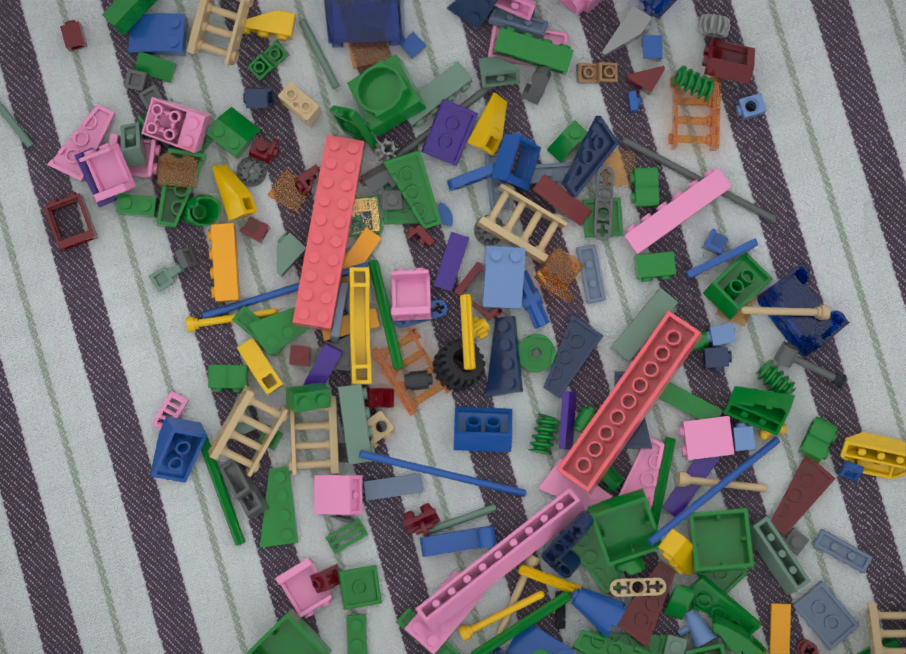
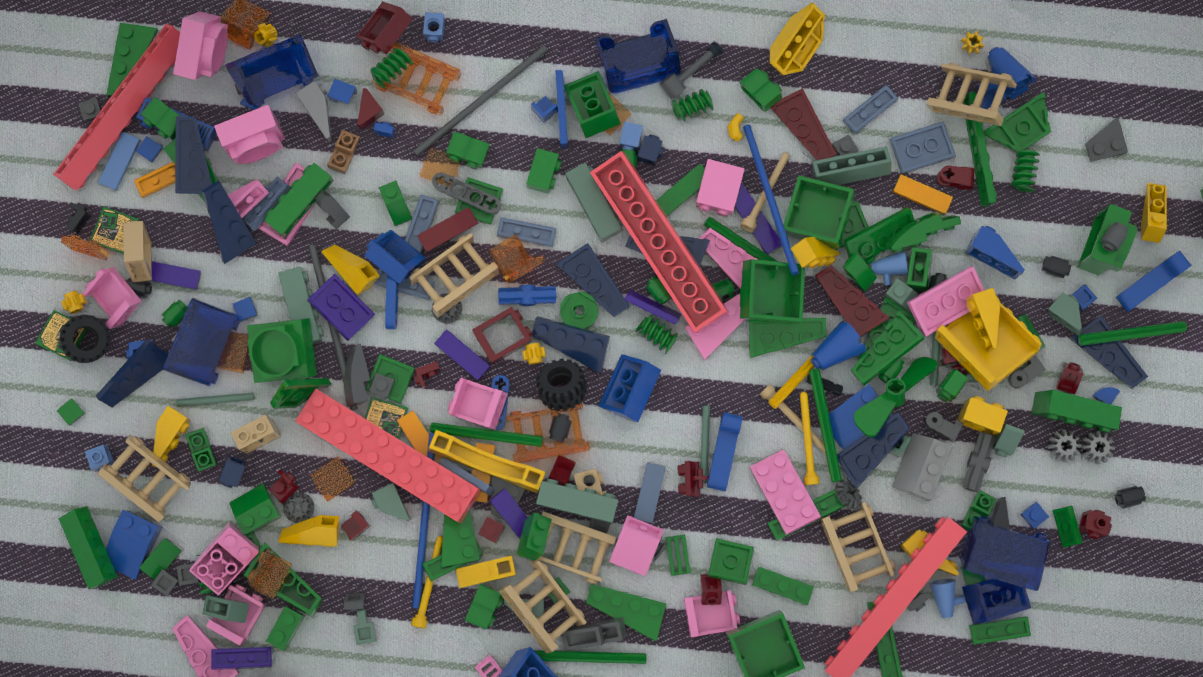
camera: 70 degrees left, 5 degrees down
(73, 35) = (96, 625): dark red brick -> none
(108, 171) = (241, 640): bright pink panel -> none
(201, 210) = (316, 568): green hair -> none
(225, 262) = (374, 566): light orange brick -> none
(307, 176) = (328, 462): dark red bracket -> none
(385, 145) = (337, 371): light grey gear -> none
(414, 184) = (375, 358): green wing -> none
(442, 473) = (655, 440): blue piece -> none
(445, 214) = (415, 344): blue tile -> none
(467, 332) = (534, 363): yellow axle -> none
(497, 72) = (304, 240): sand green slope -> none
(500, 559) = (757, 417): bright pink brick -> none
(503, 277) = (496, 310): medium blue slope -> none
(559, 552) = (771, 363): dark blue beam -> none
(590, 157) = (417, 185): dark blue wing -> none
(631, 566) = (810, 301): green hair -> none
(652, 592) = (841, 292): tan beam -> none
(677, 211) = (501, 129): bright pink brick -> none
(714, 26) = (346, 29): light grey gear -> none
(743, 437) = (732, 154): medium blue brick -> none
(759, 408) = (711, 128): green wedge -> none
(821, 312) = (646, 40): tan piece -> none
(851, 470) = (801, 72): blue tile -> none

